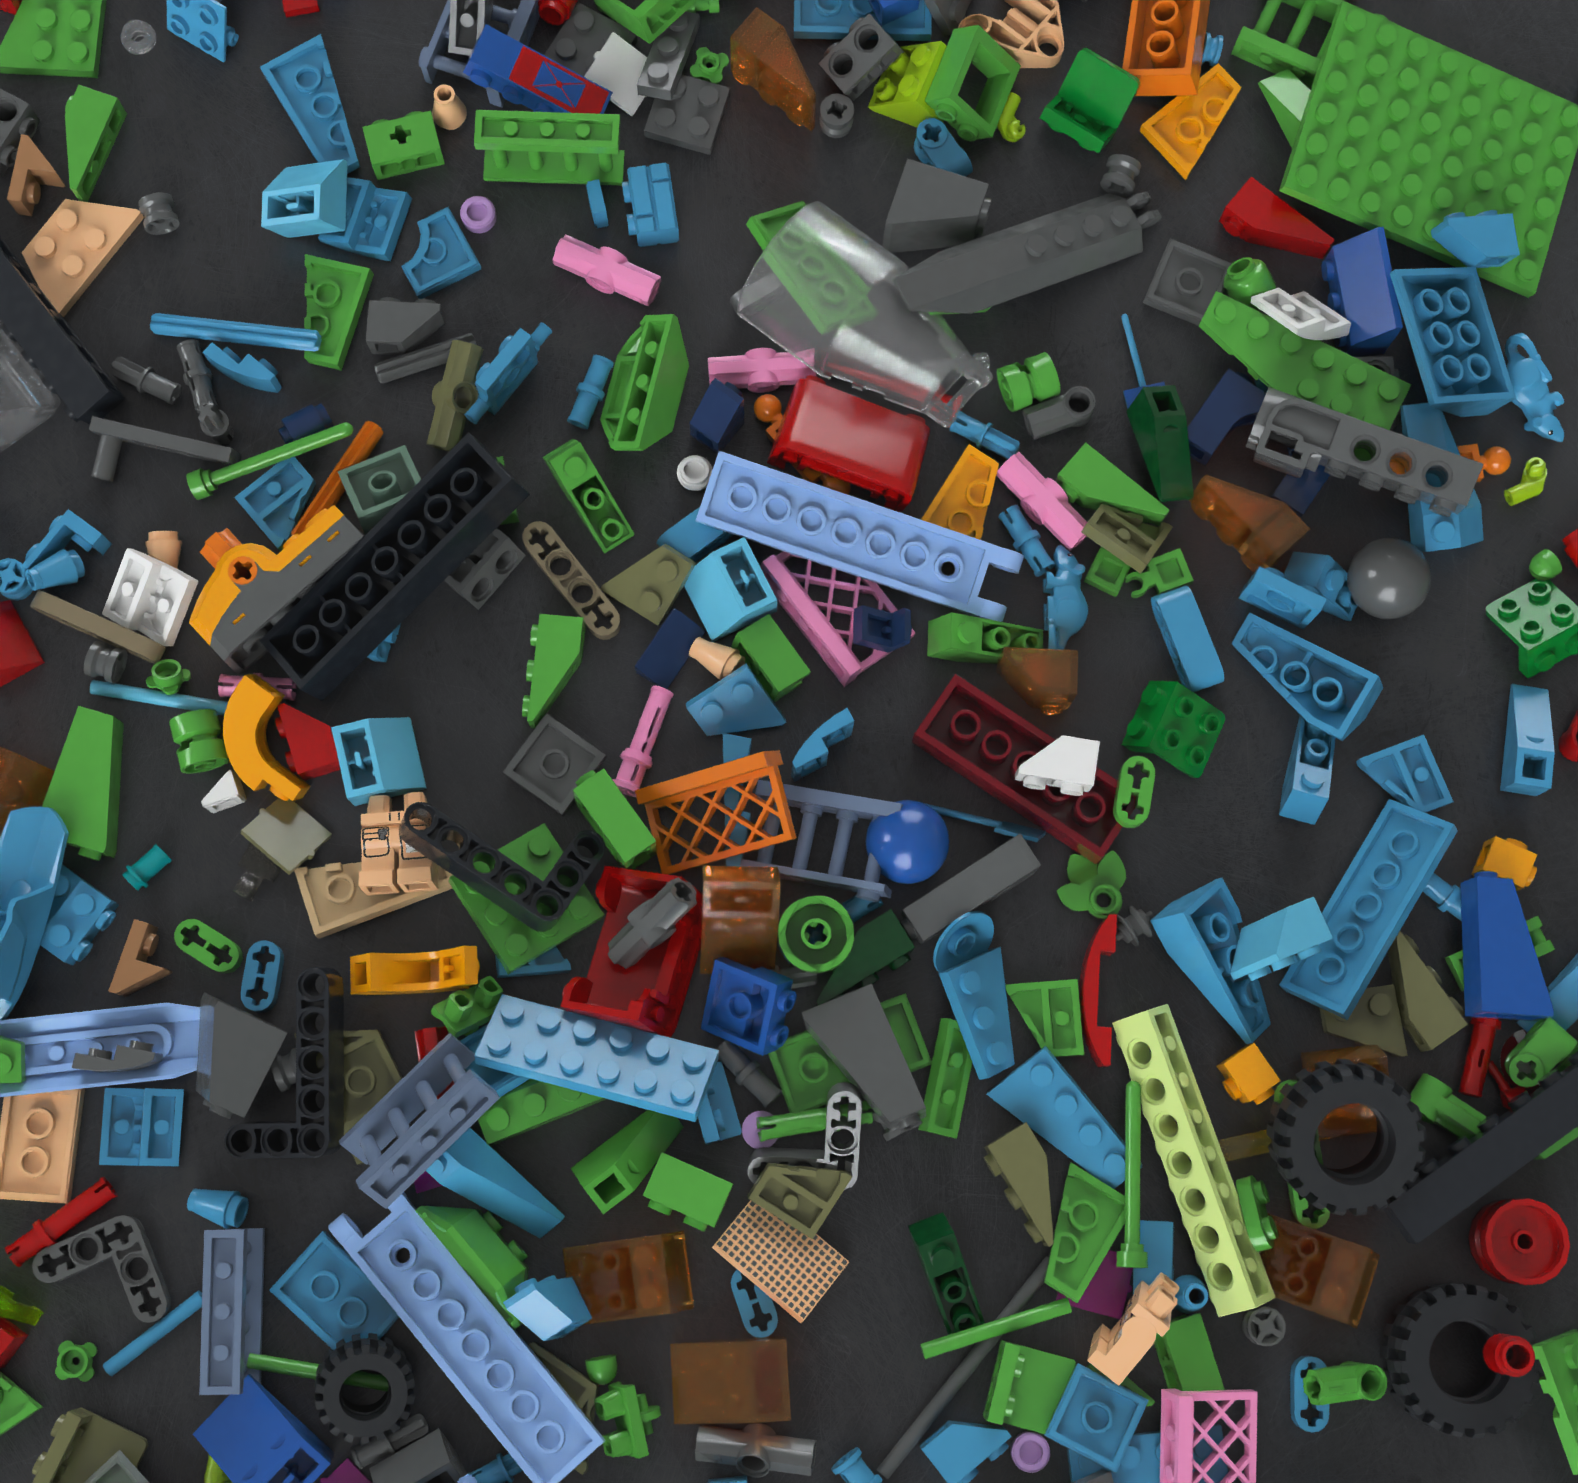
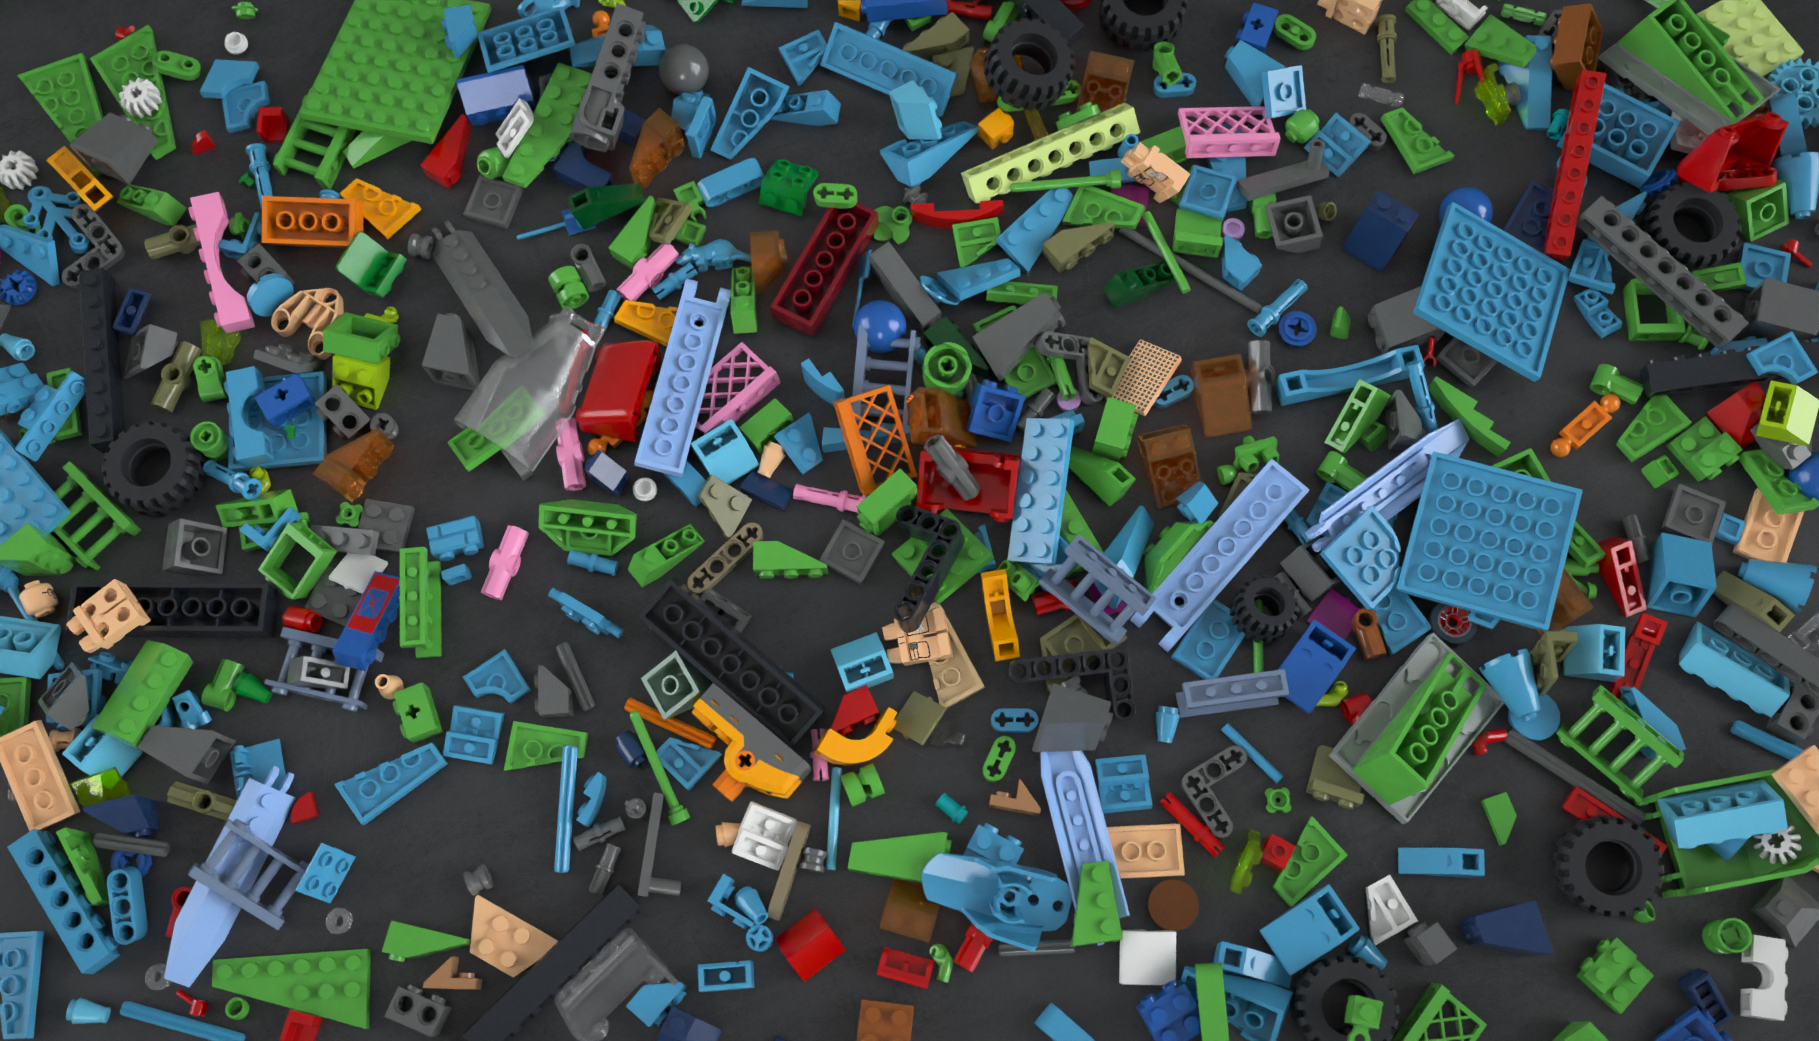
camera: 90 degrees left, 5 degrees down
(126, 1058) = (1082, 791): dark grey slope -> none
(167, 676) = (813, 815): bright green plate -> none
(225, 794) = (895, 761): white slope -> none
(306, 200) = (463, 770): medium azure slope -> none
(459, 379) = (603, 649): olive piece -> none
(478, 214) = (466, 657): lavender tile -> none
(881, 629) = (743, 355): dark blue bracket -> none
(944, 152) = (410, 356): dark azure piece -> none
(1062, 764) = (823, 233): white slope -> none
(1270, 1329) = (1144, 105): dark grey wheel -> none

